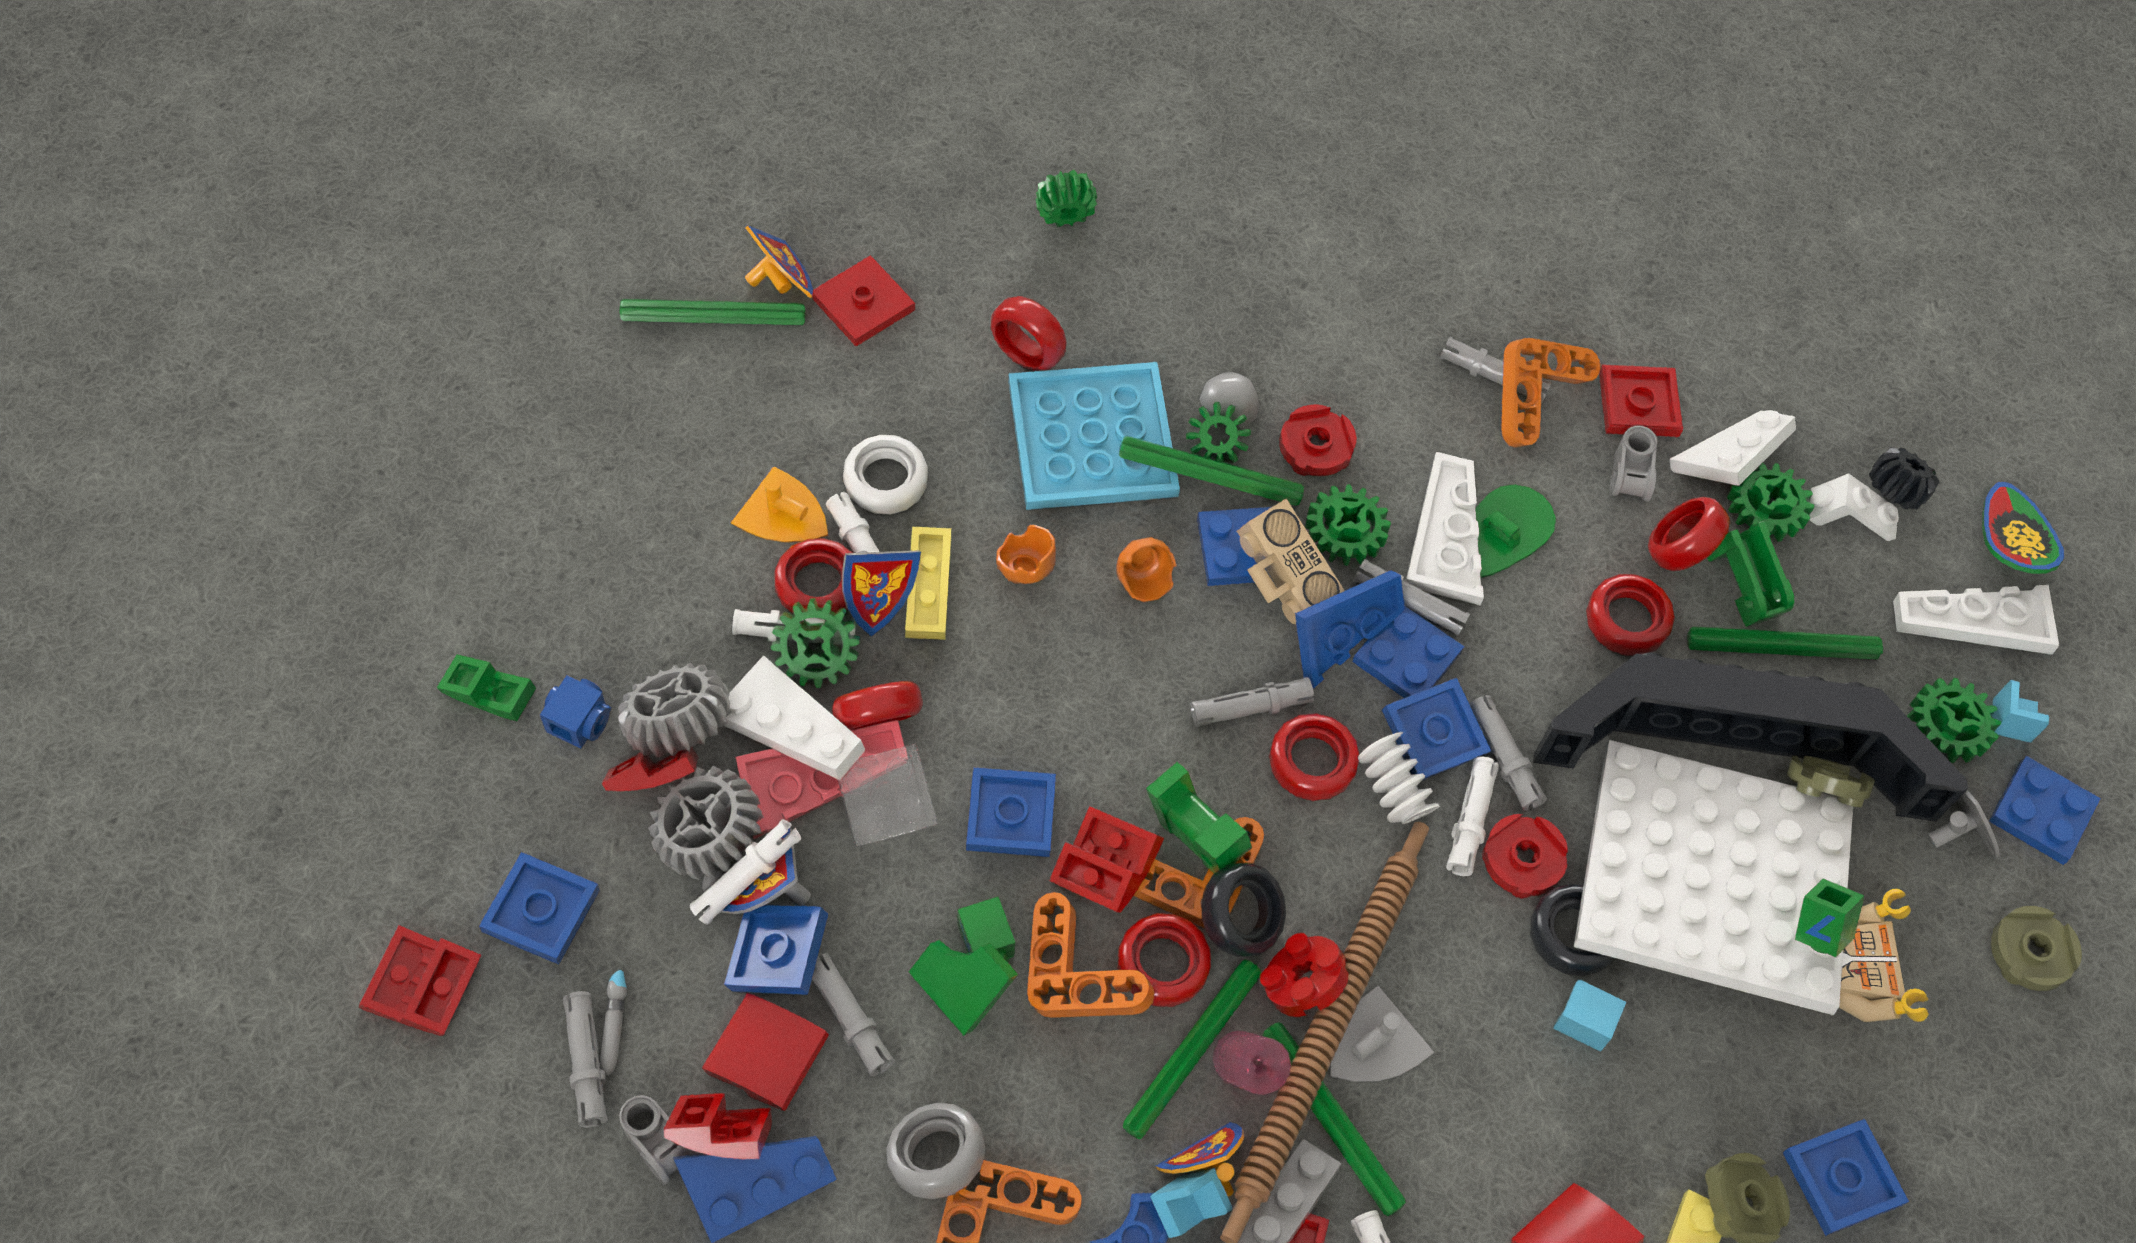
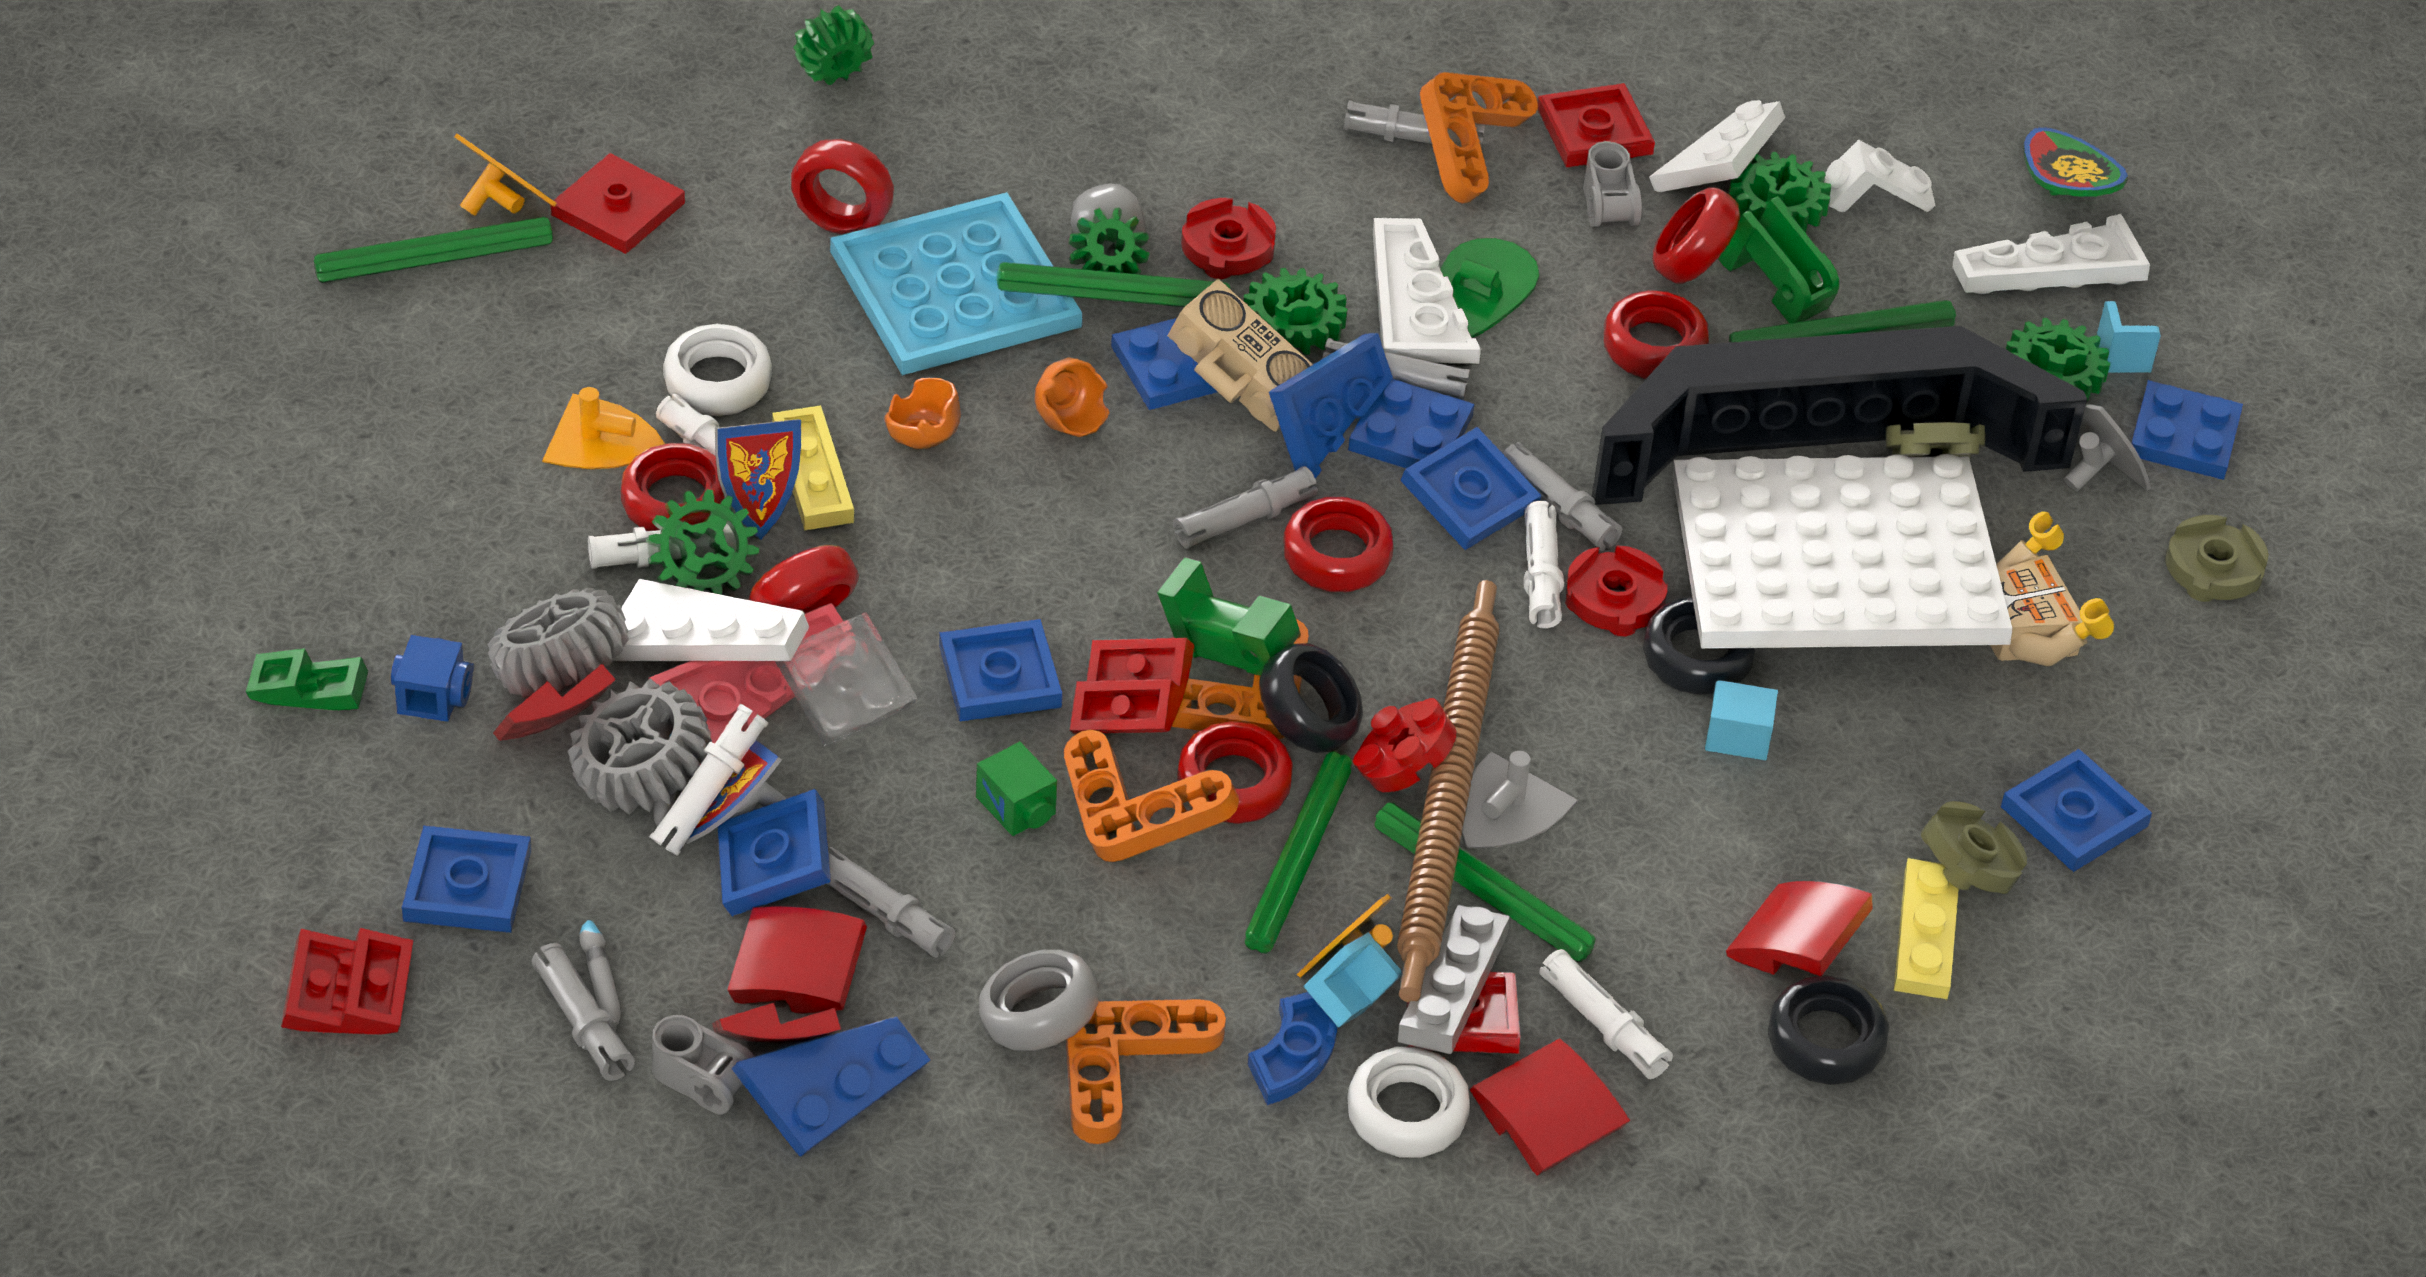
camera: 15 degrees left, 15 degrees down
(963, 983) = (1010, 837): green tile -> none
(1251, 1062) = (1374, 832): clear pink piece -> none
(1396, 780) = (1440, 542): white piece -> none
(1829, 917) = (1972, 539): green brick -> none
(1903, 478) = (1924, 139): black gear -> none

